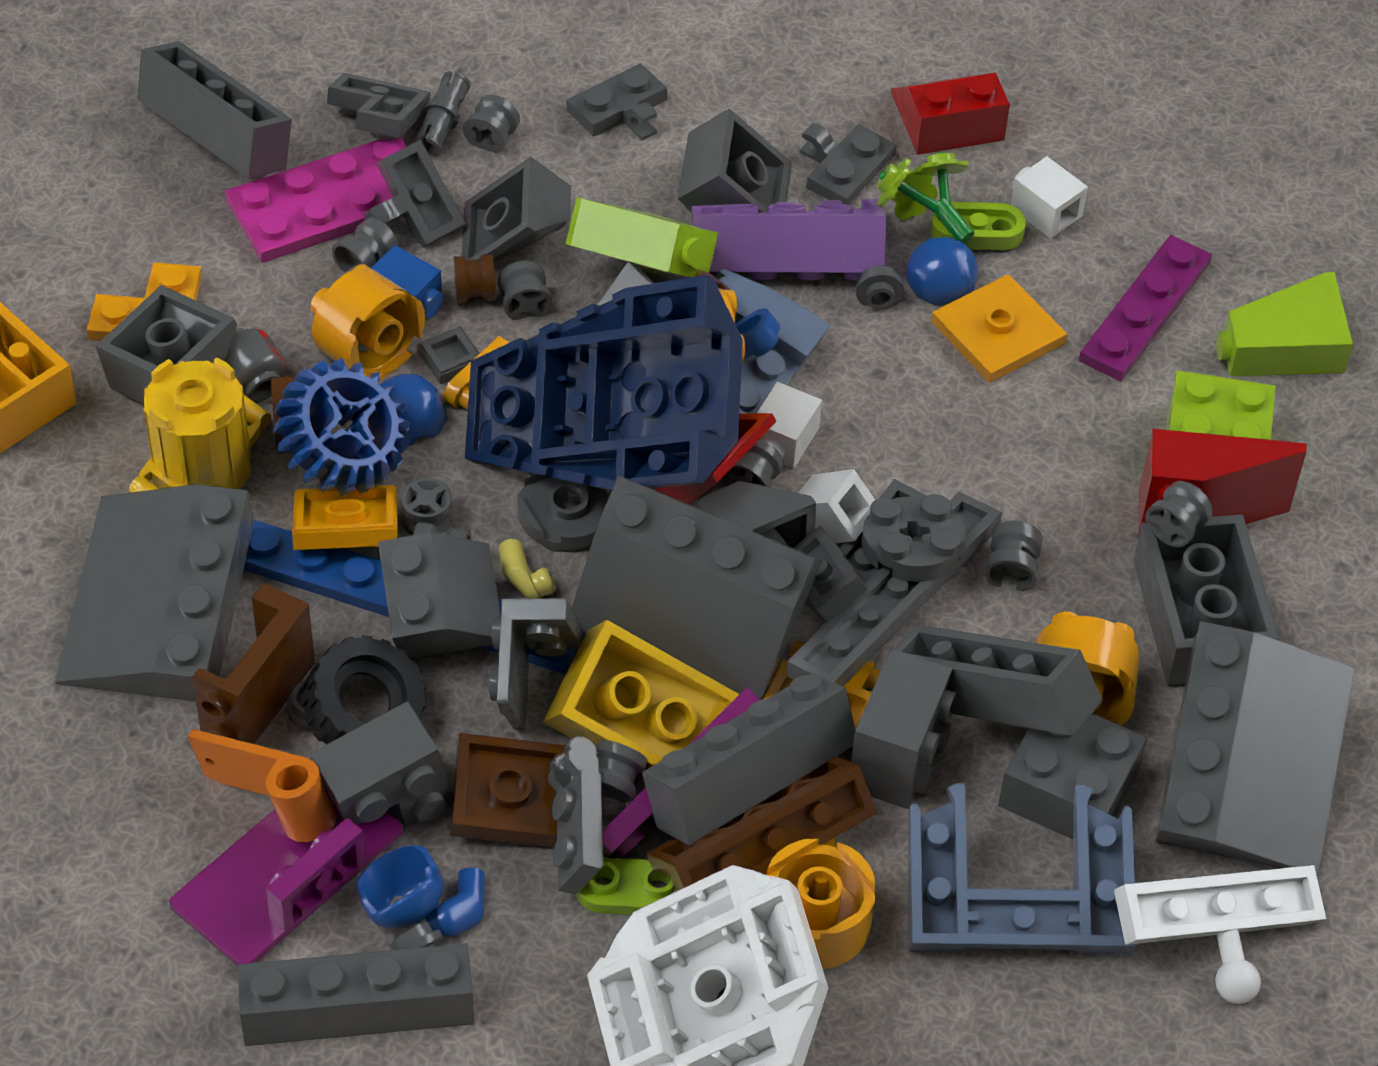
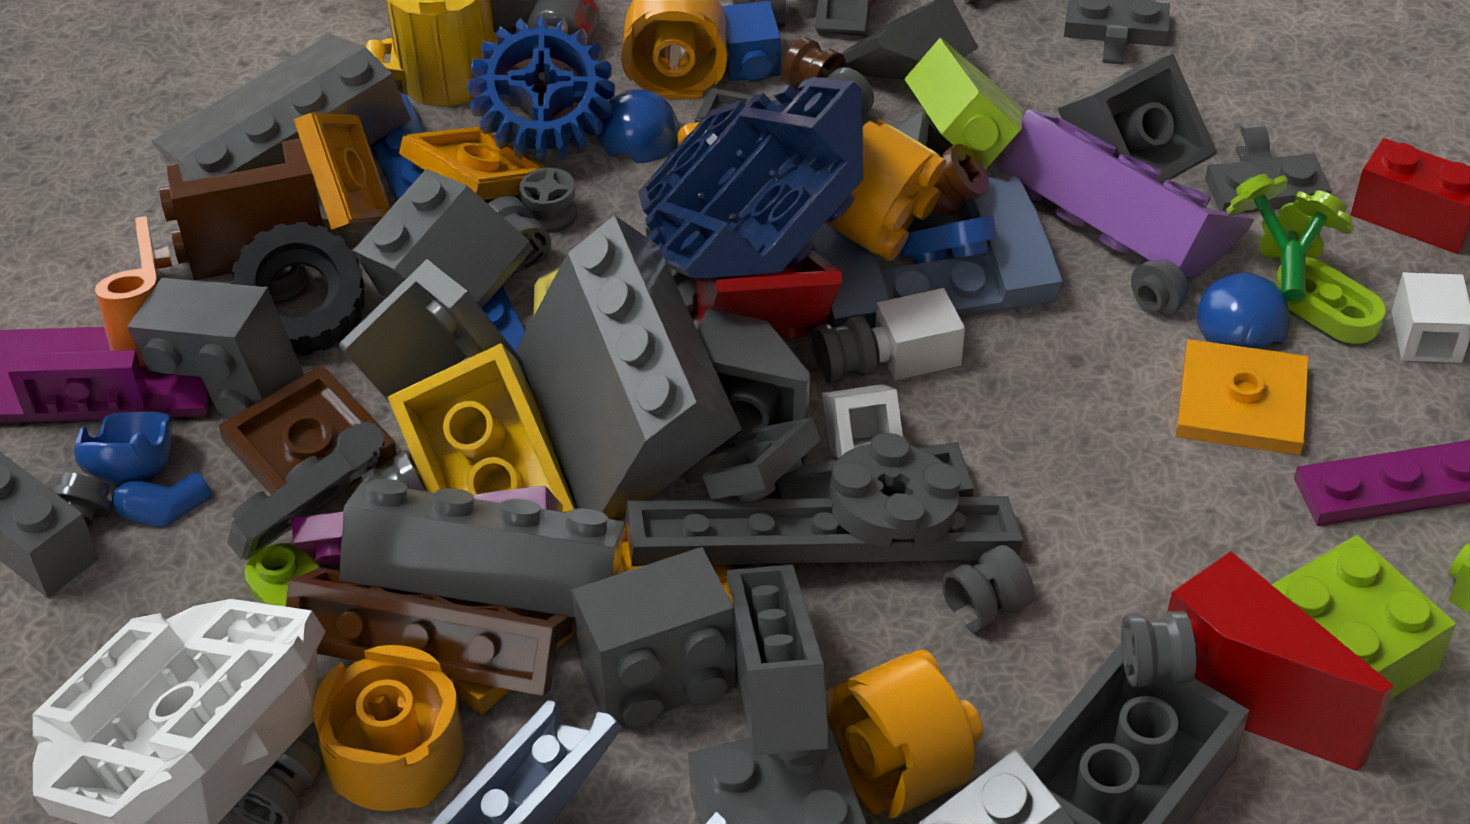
camera: 50 degrees right, 5 degrees down
(293, 581) = (343, 169): none -> light orange plate

